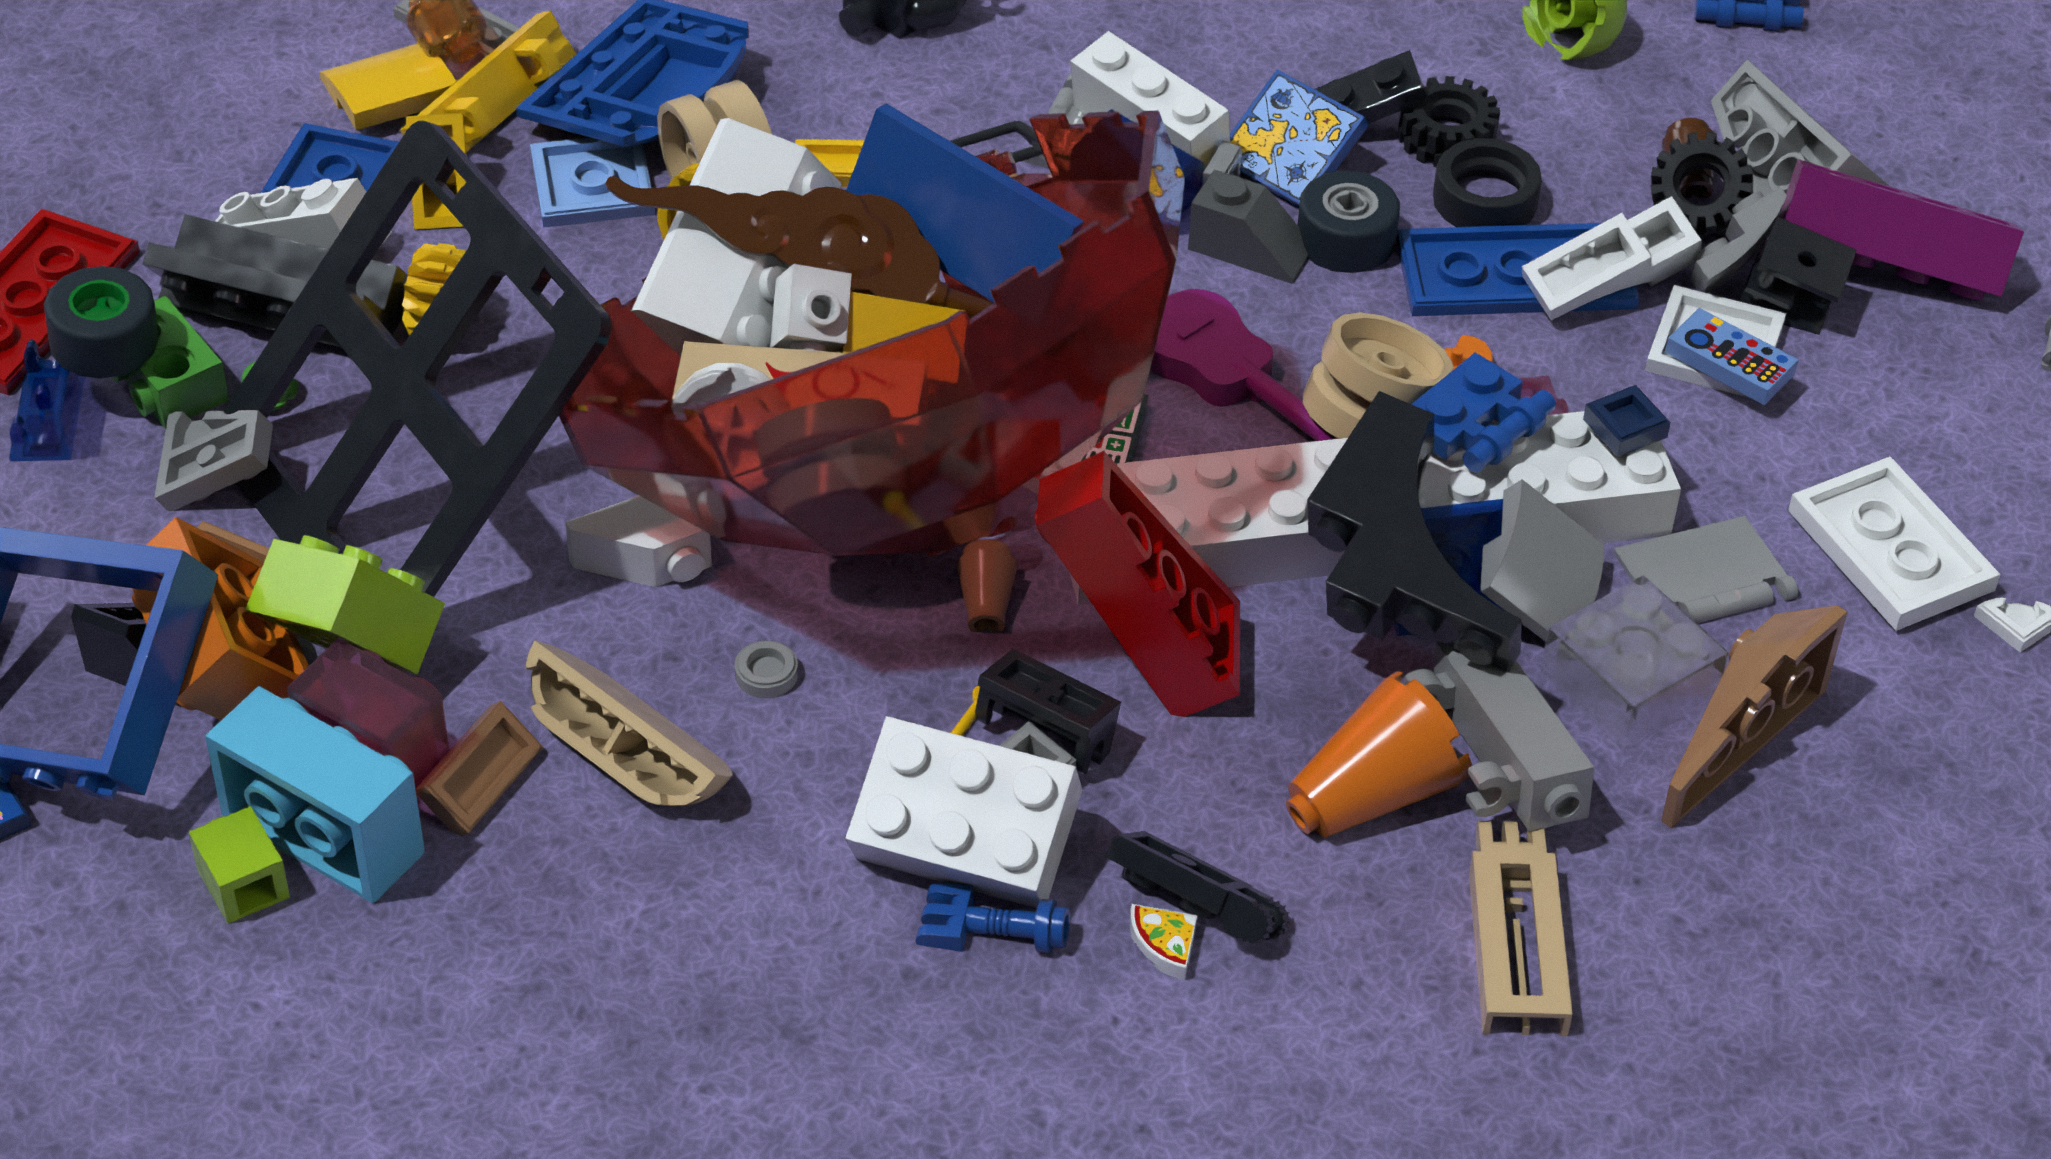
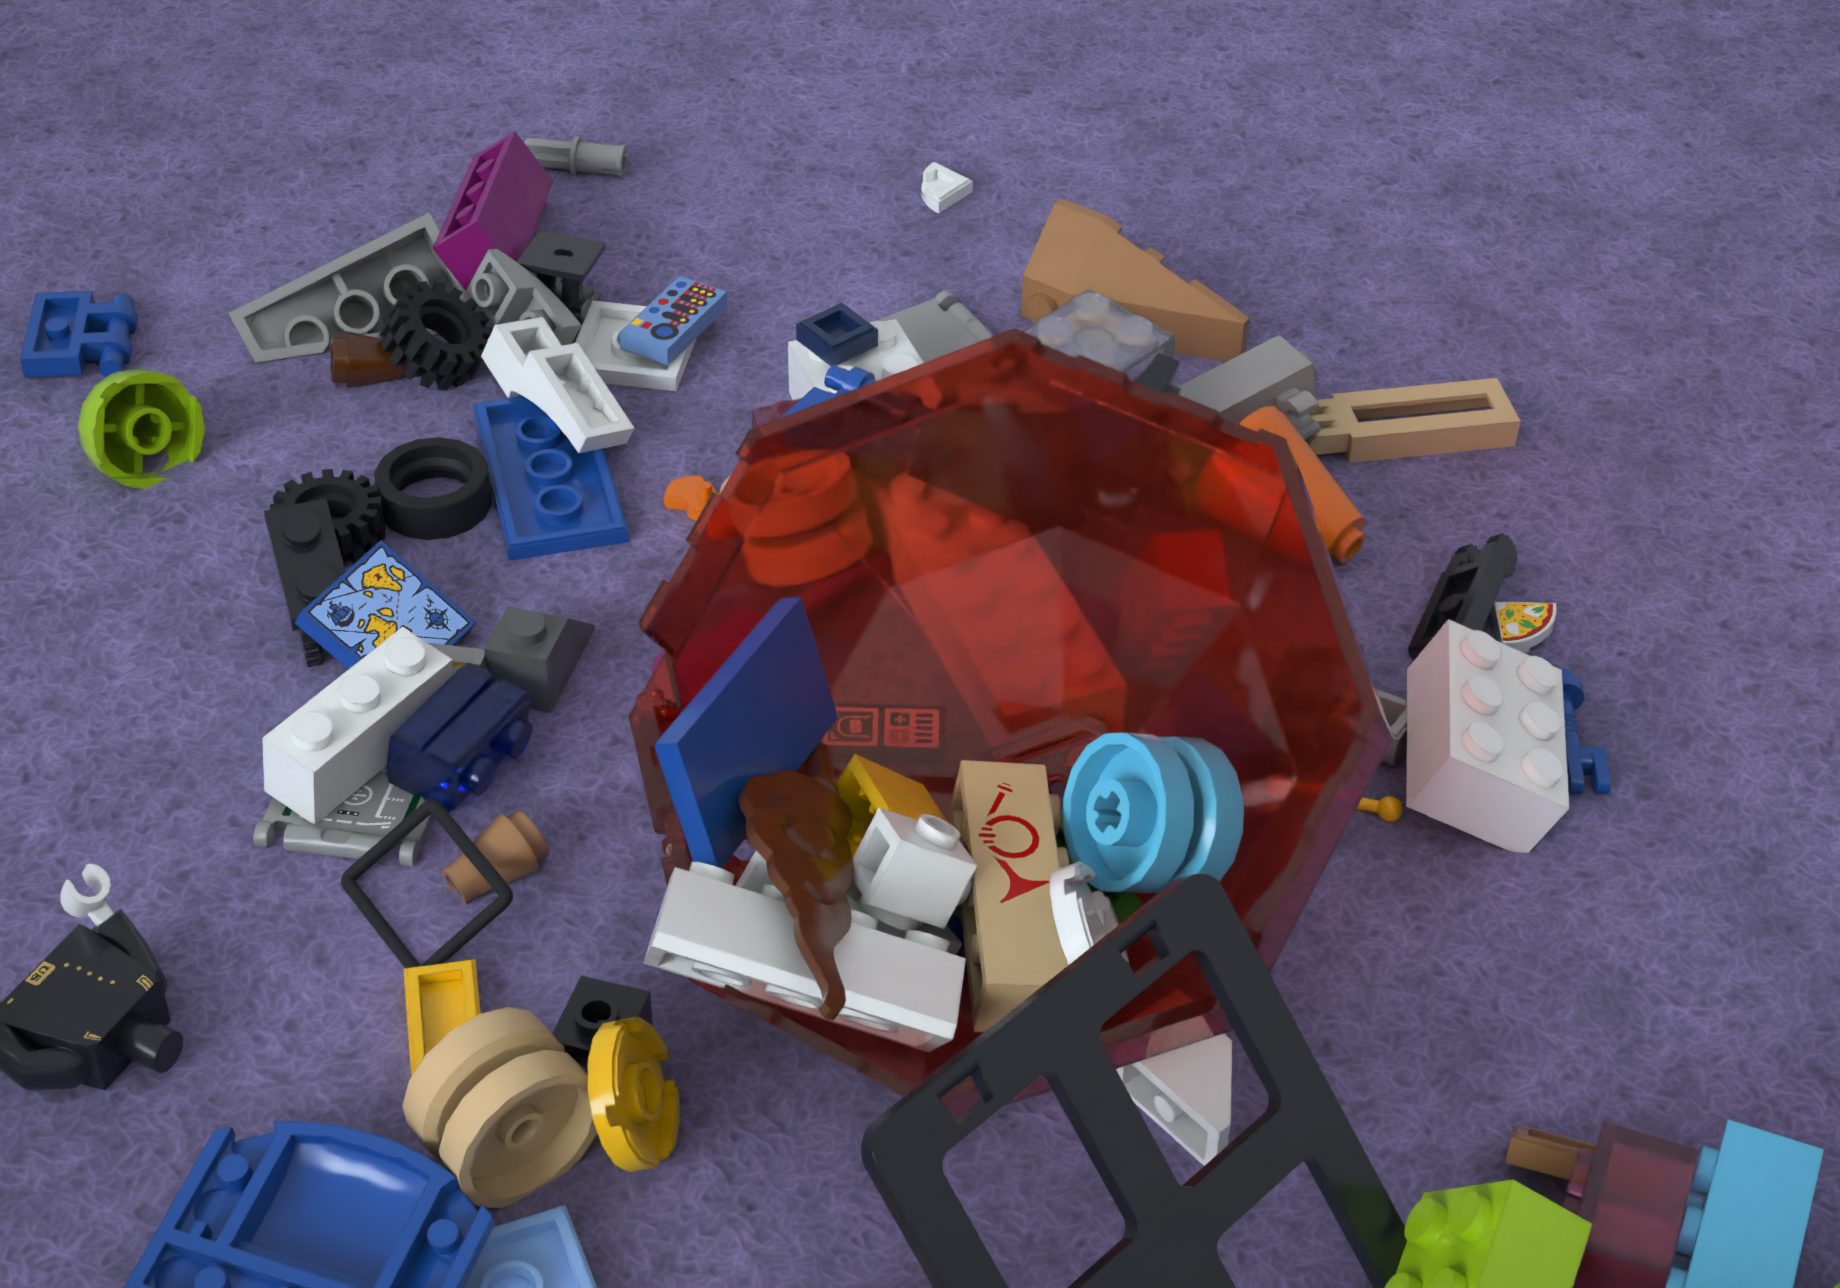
camera: 100 degrees left, 5 degrees down
(621, 731) = (1478, 1039): tan brick -> none
(766, 669) = (1318, 957): light grey tile -> none
(1348, 221) = (510, 567): black wheel -> none
(1893, 543) = (879, 241): white plate -> none

